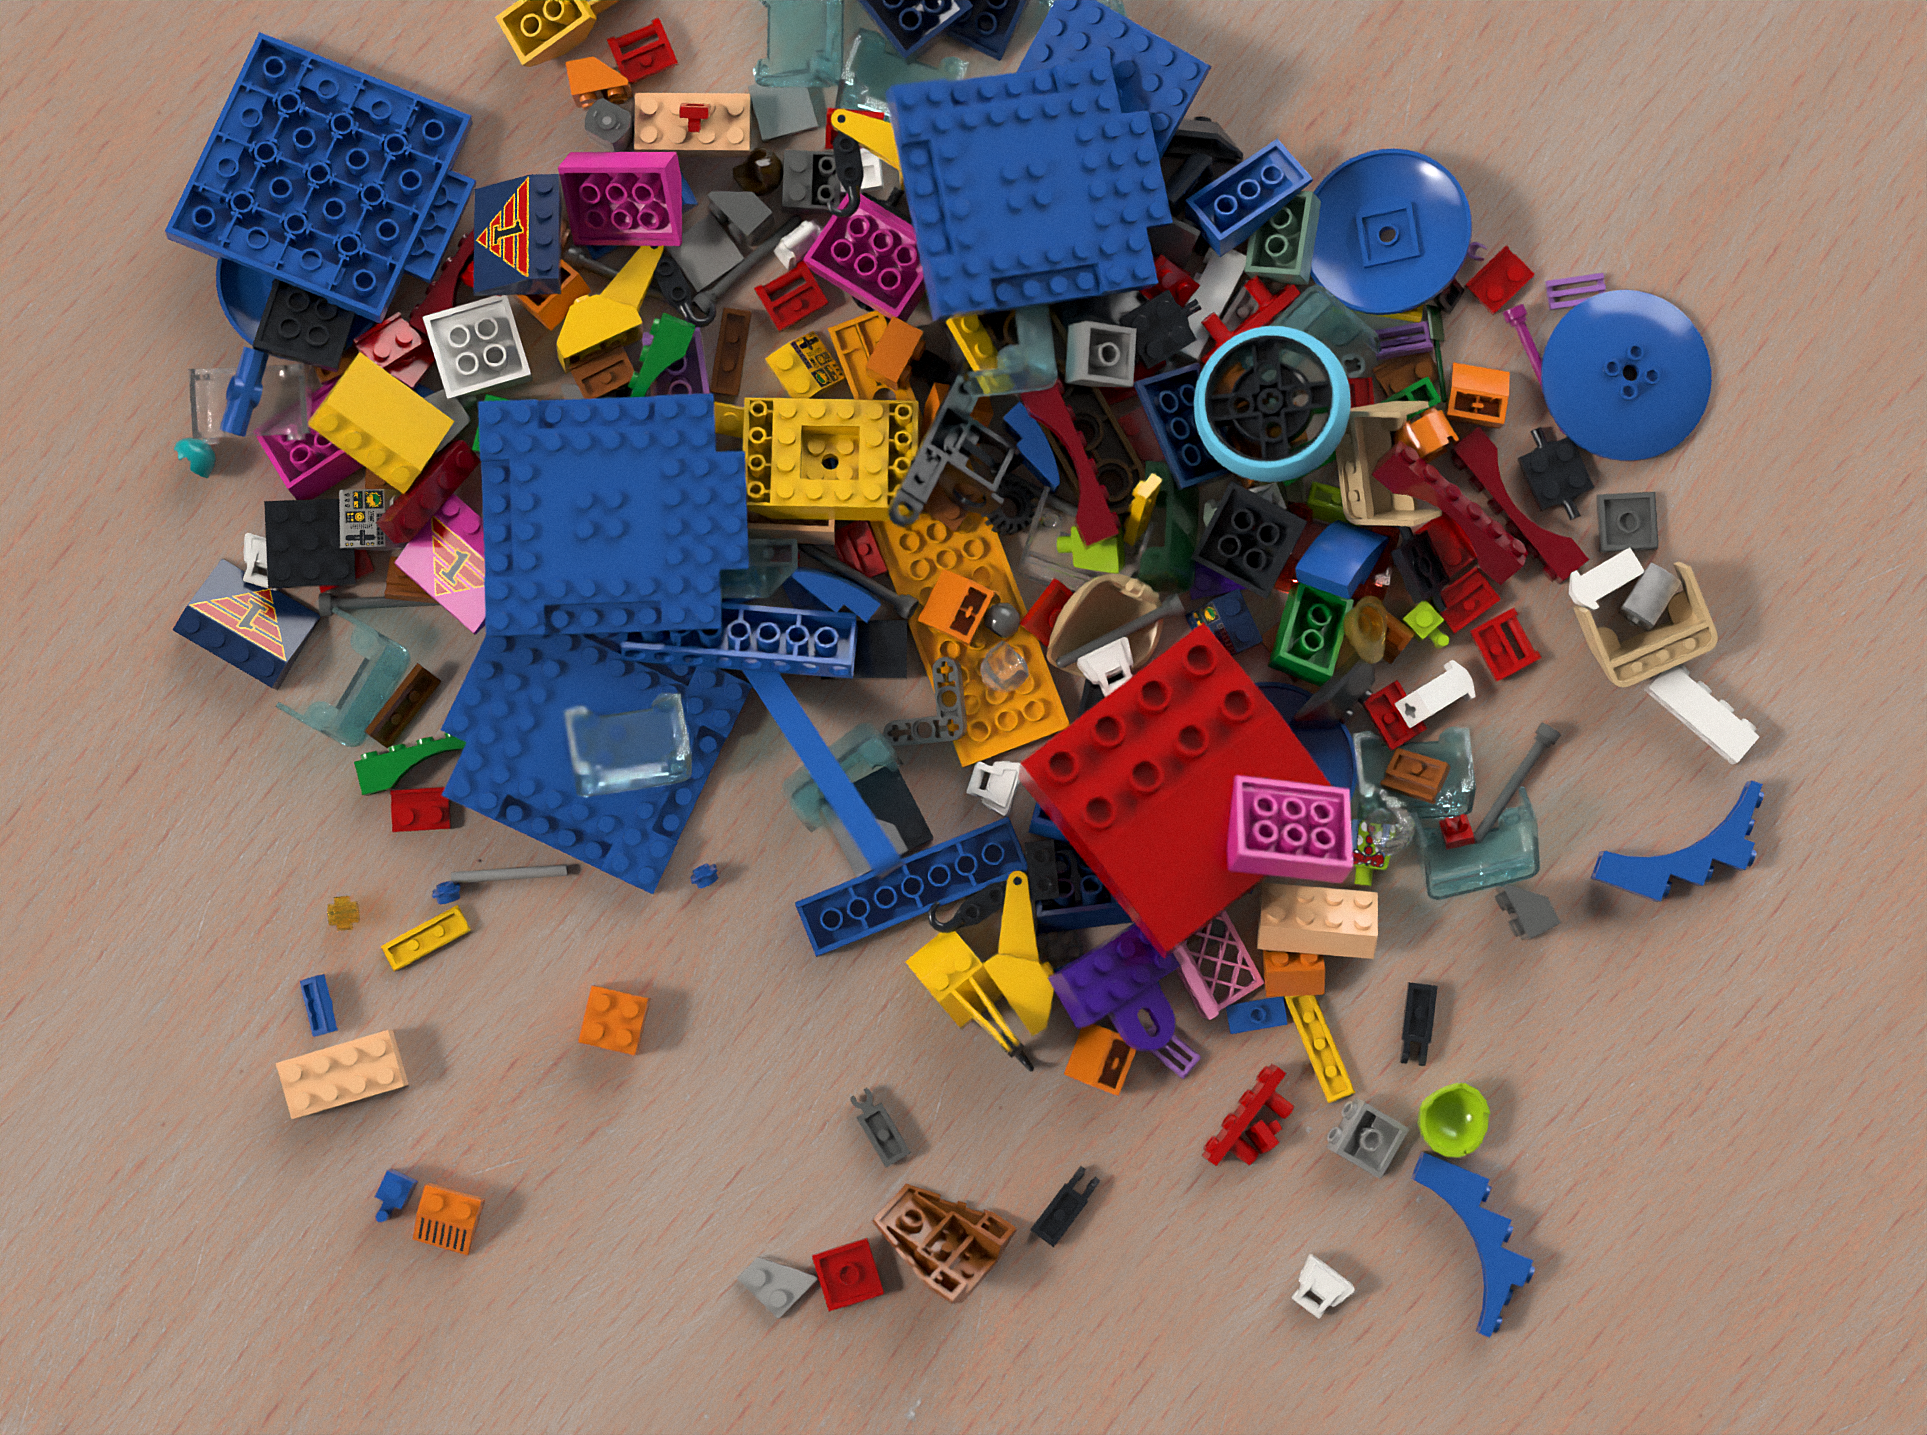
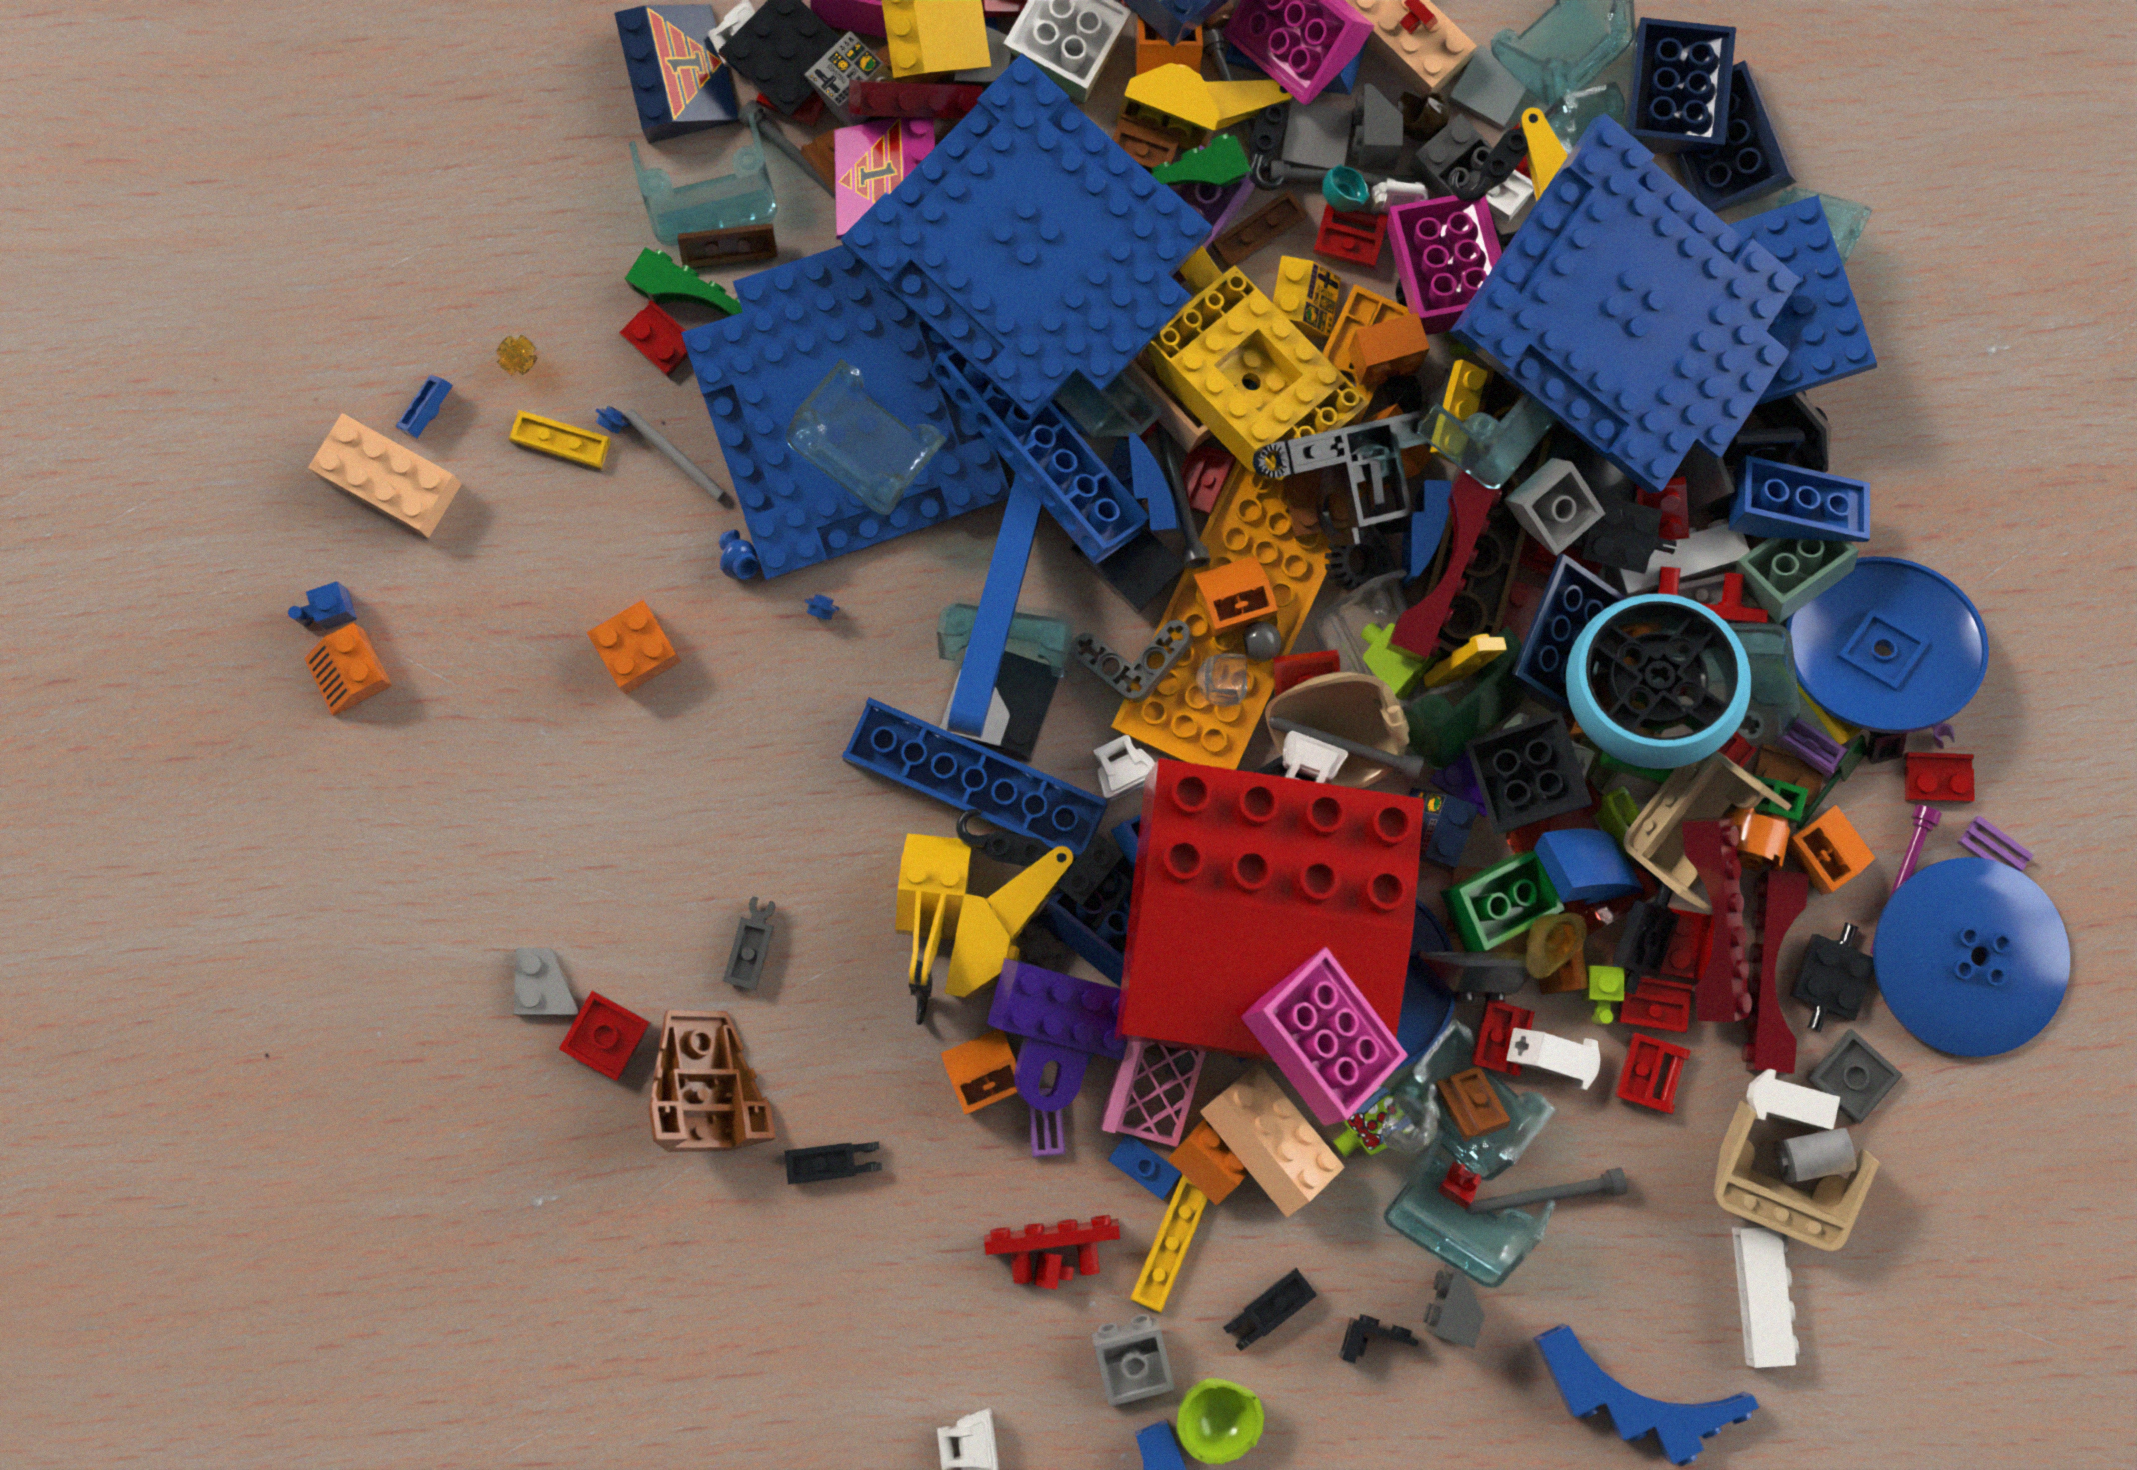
camera: 45 degrees right, 5 degrees down
(620, 897) = (738, 556): none -> blue animal
(760, 272) = (1344, 189): none -> teal hair
(1488, 990) = (1355, 1342): none -> black bracket

